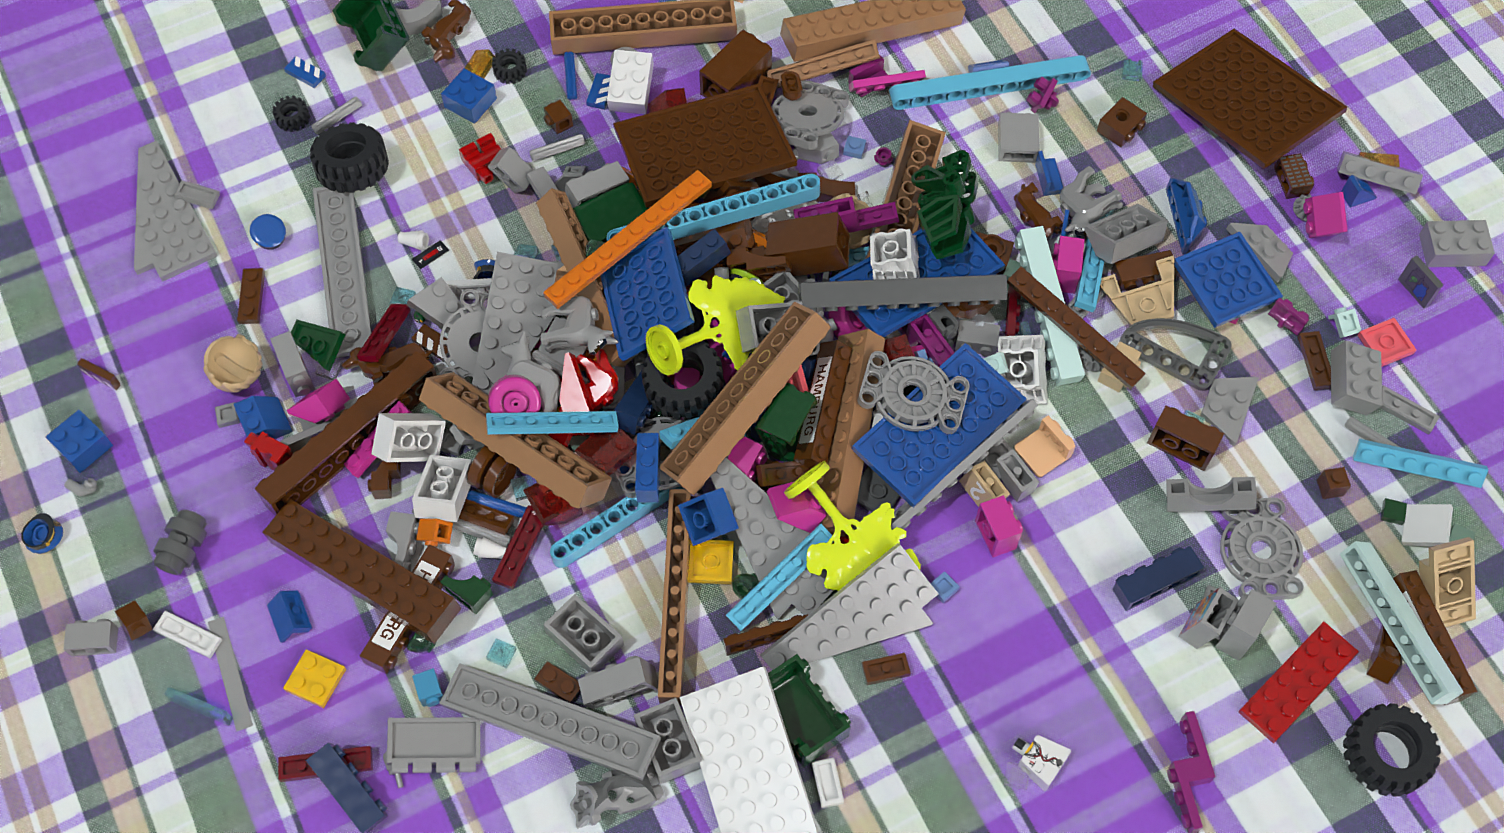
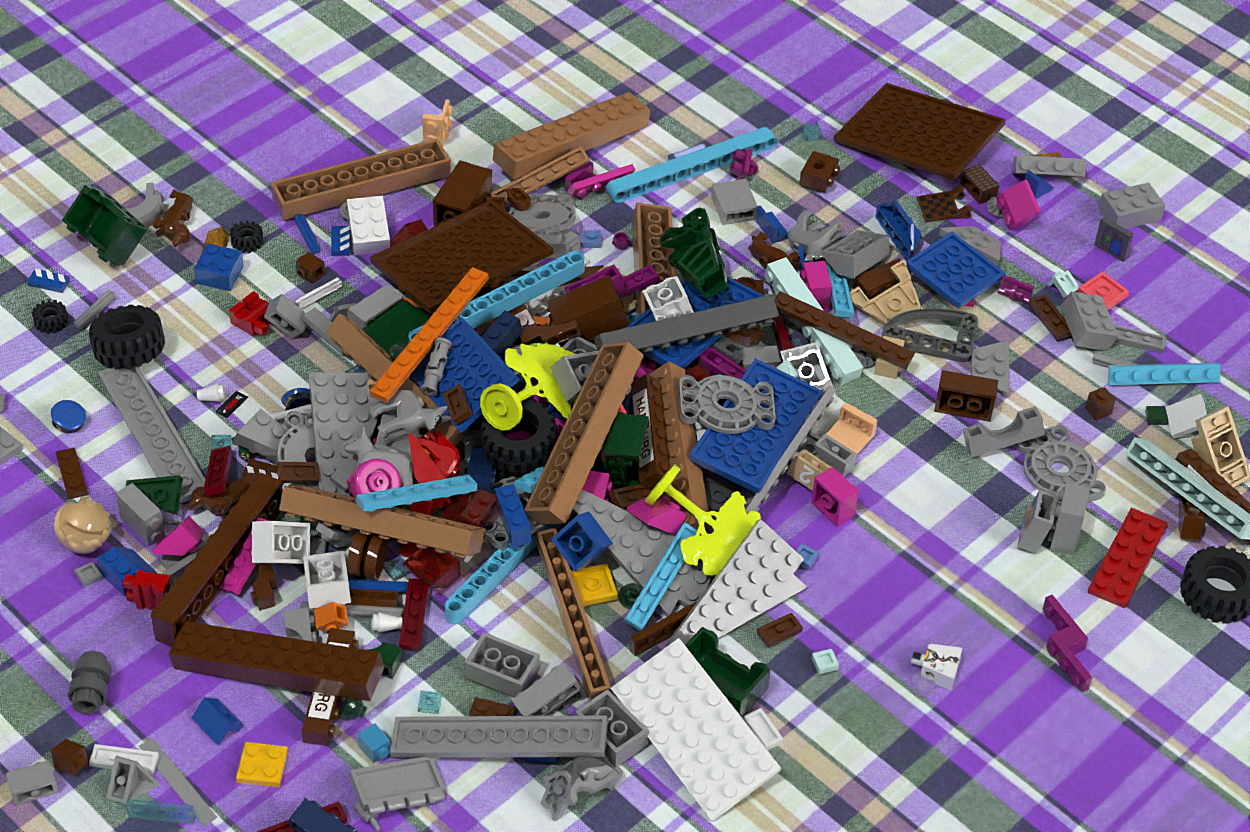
camera: 20 degrees left, 15 degrees down
(179, 664) = (129, 781): none -> light grey slope
(455, 358) = (298, 472): none -> reddish brown plate
(623, 275) = (435, 366): none -> light grey piece
(626, 330) = (457, 404): none -> reddish brown plate
(920, 720) = (825, 661): none -> light aqua plate
(1157, 578) = (983, 507): dark blue brick -> none
(1243, 192) = (943, 206): none -> reddish brown flag

